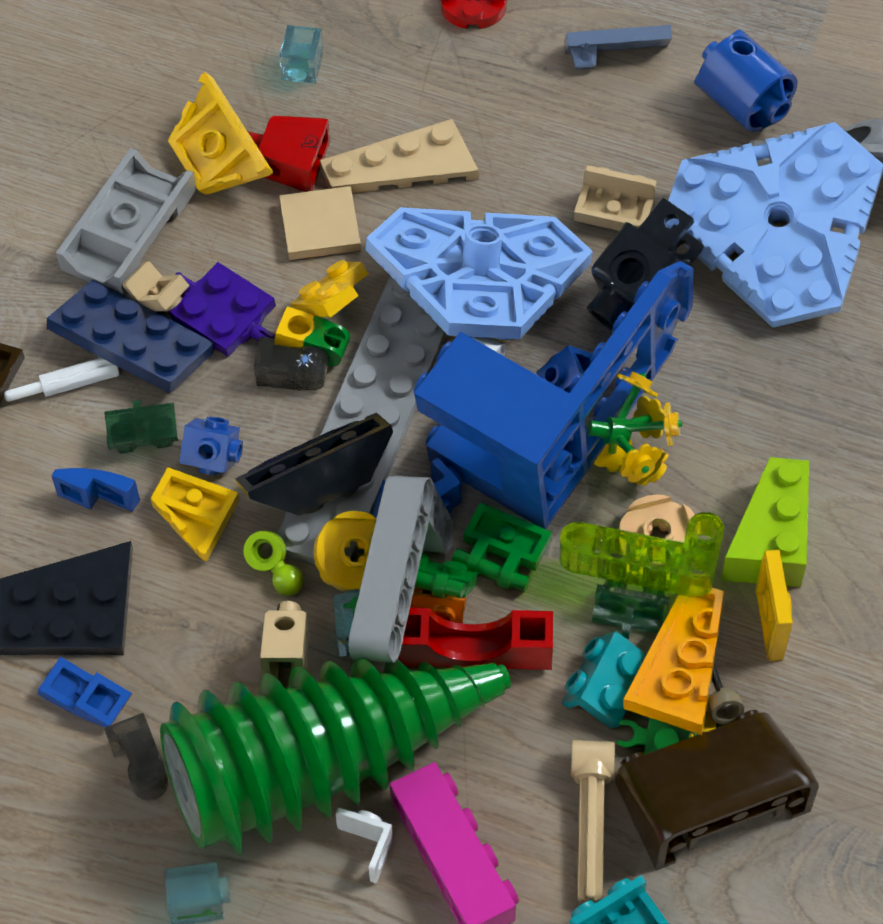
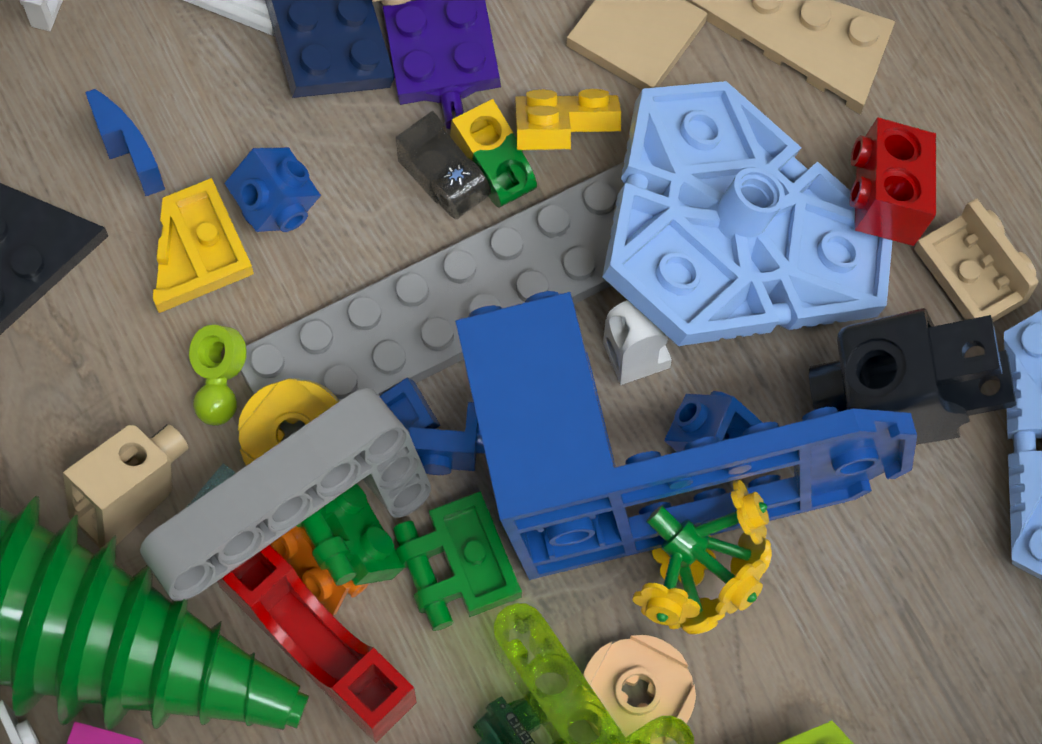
camera: 40 degrees right, 10 degrees up
(141, 427) = (228, 110): clear green hips -> none
(320, 468) = (334, 308): black wedge -> none
(536, 190) = (894, 181): none -> red brick

